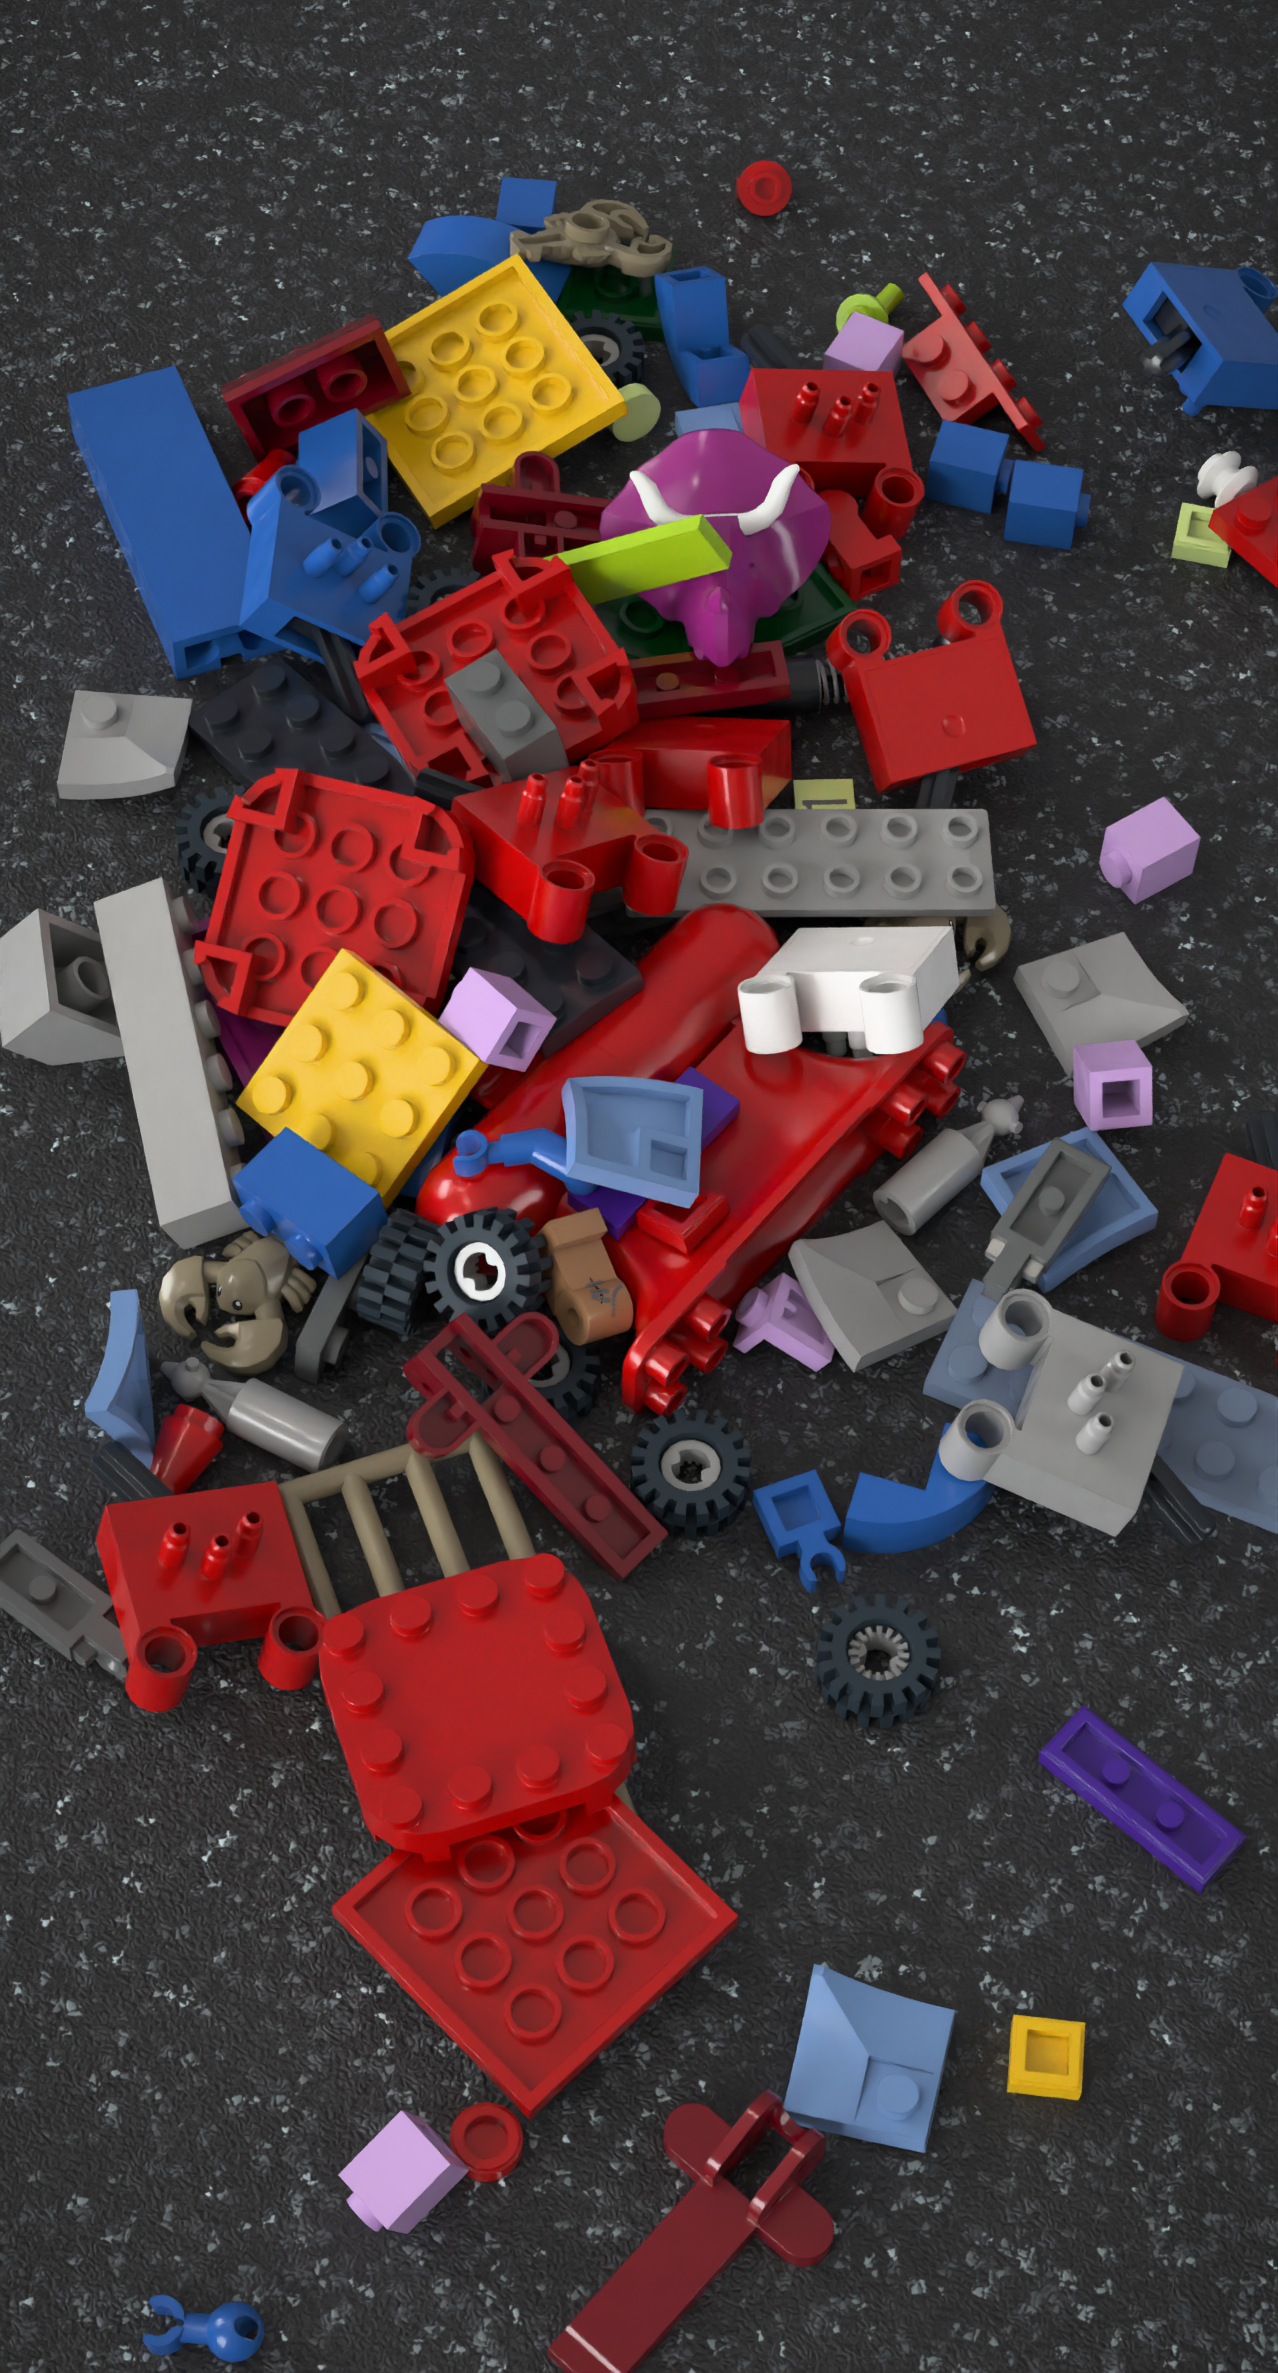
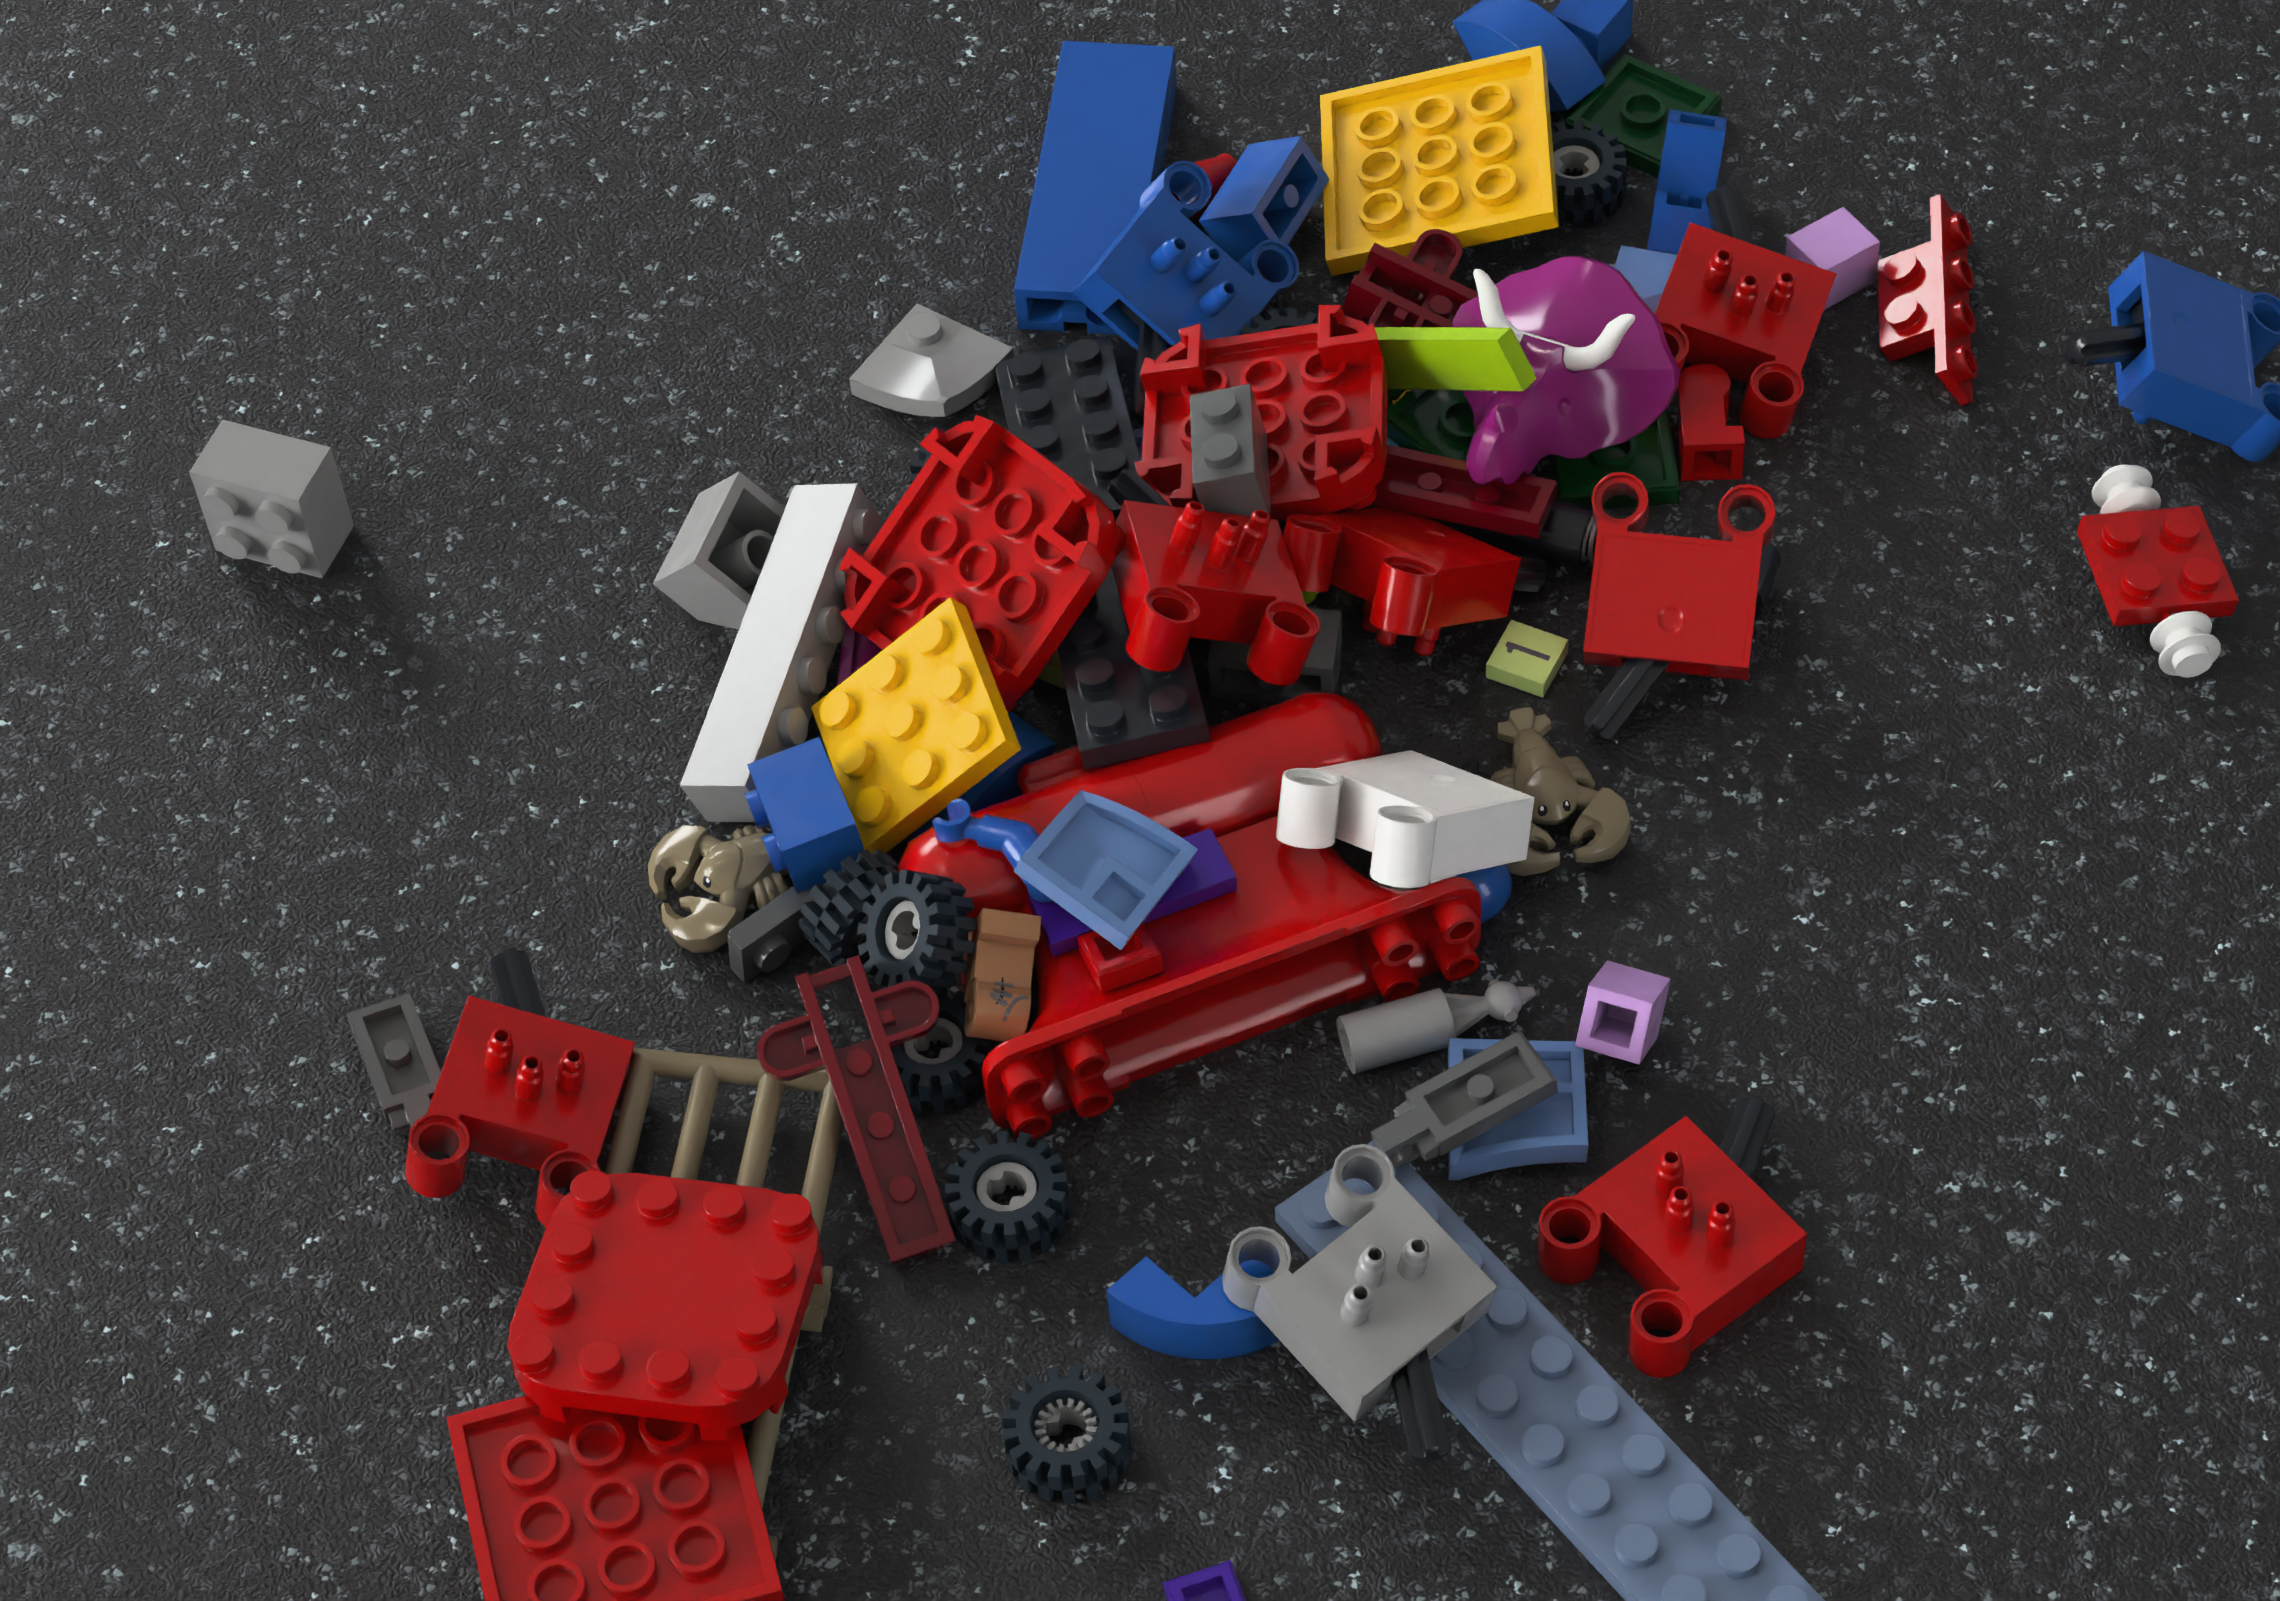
camera: 35 degrees right, 5 degrees down
(122, 1390) = (564, 906): medium blue plate -> none
(185, 1447) = (587, 988): red cone -> none
(264, 1416) = (674, 988): light grey wheel -> none
(315, 385) = (1324, 101): dark red slope -> none
(497, 1019) = (1047, 713): lavender brick -> none
(594, 240) = (1637, 60): dark tan animal -> none
(642, 416) = (1580, 231): yellowish green tile -> none
(764, 188) = (1845, 67): red plate -> none
(784, 1319) = (1185, 1102): lavender bracket -> none
(801, 1521) = (1076, 1282): blue plate -> none
(837, 862) = (1478, 701): light grey bracket -> none
(870, 1293) = (1271, 1105): light grey plate -> none
(874, 307) = (1878, 219): lime plate -> none
(969, 467) = (1870, 392): blue brick -> none
(1045, 505) = (1923, 454): blue brick -> none
(1097, 997) = (1676, 929): light grey plate -> none
(1148, 850) = (1809, 813): lavender brick -> none
(1196, 541) = (2061, 544): yellowish green tile -> none

